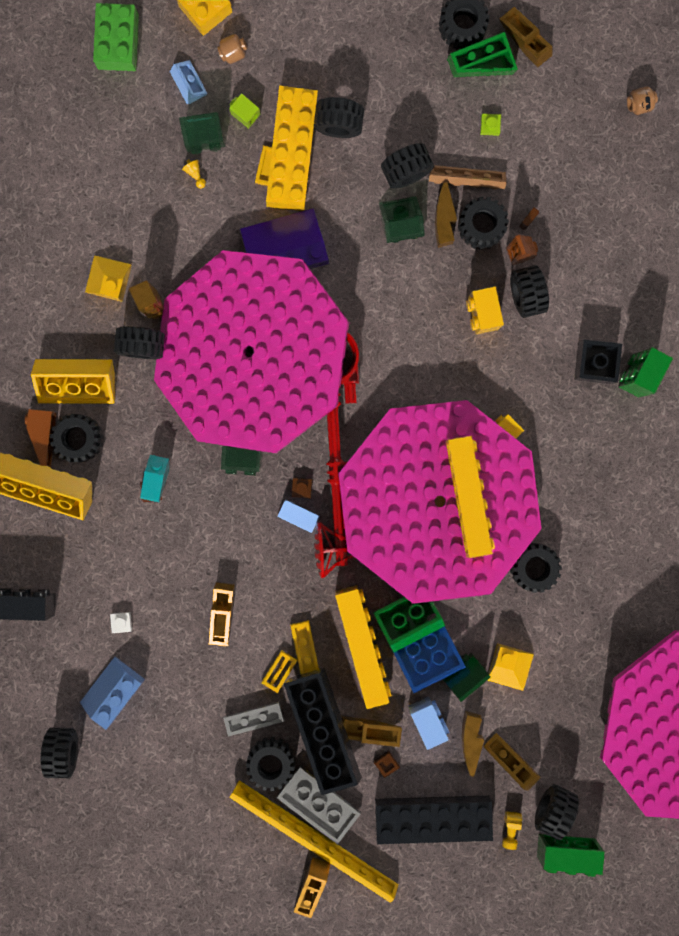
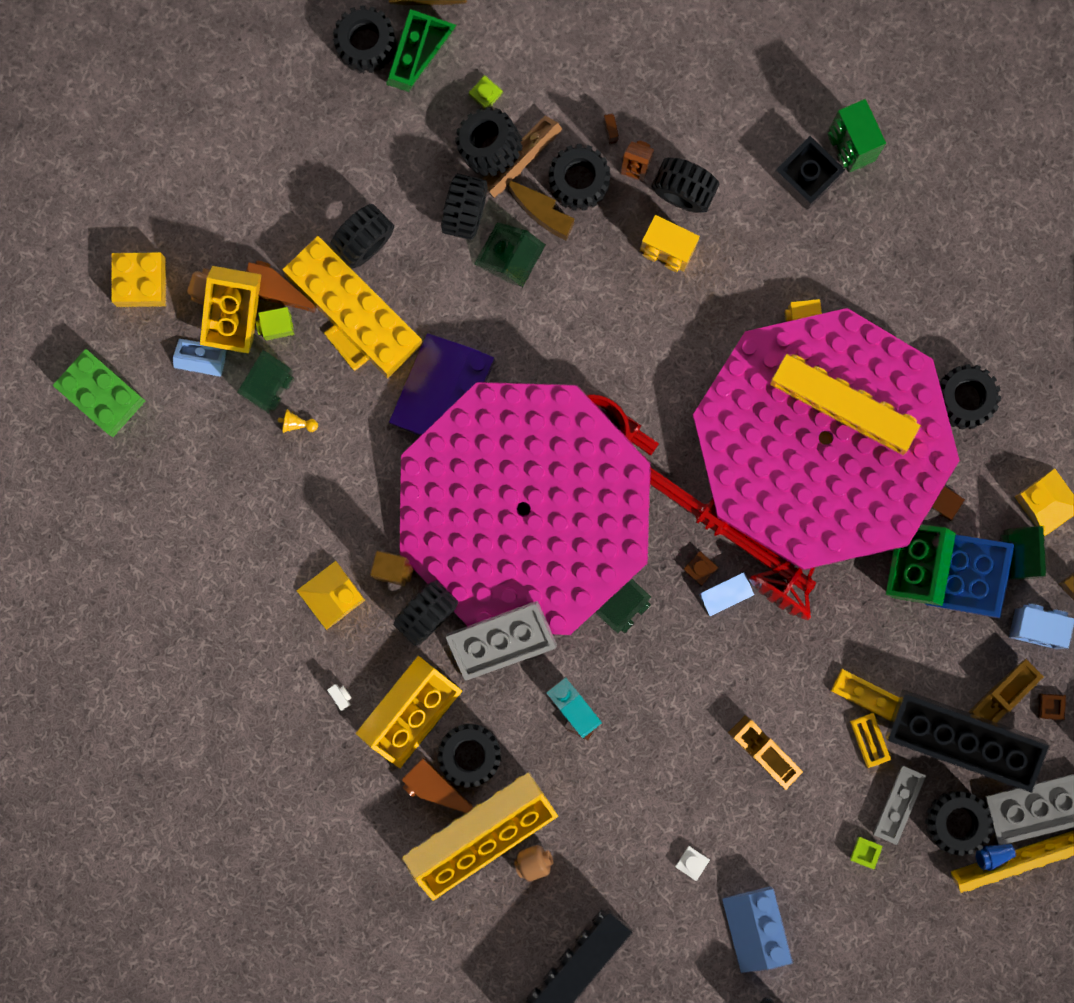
camera: 50 degrees left, 5 degrees down
(44, 527) = (533, 863): none -> medium nougat head
(50, 332) = (340, 696): none -> white plate
(159, 402) = (501, 640): none -> light grey plate
(209, 721) = (866, 853): none -> lime plate
(228, 72) = (230, 309): none -> yellow brick
(265, 87) = (277, 289): none -> dark orange slope
(267, 800) = (994, 856): none -> blue cone
(361, 645) = (912, 633): yellow brick -> none
(460, 607) = (947, 503): none -> reddish brown tile
(465, 137) = (480, 127): none -> black tyre

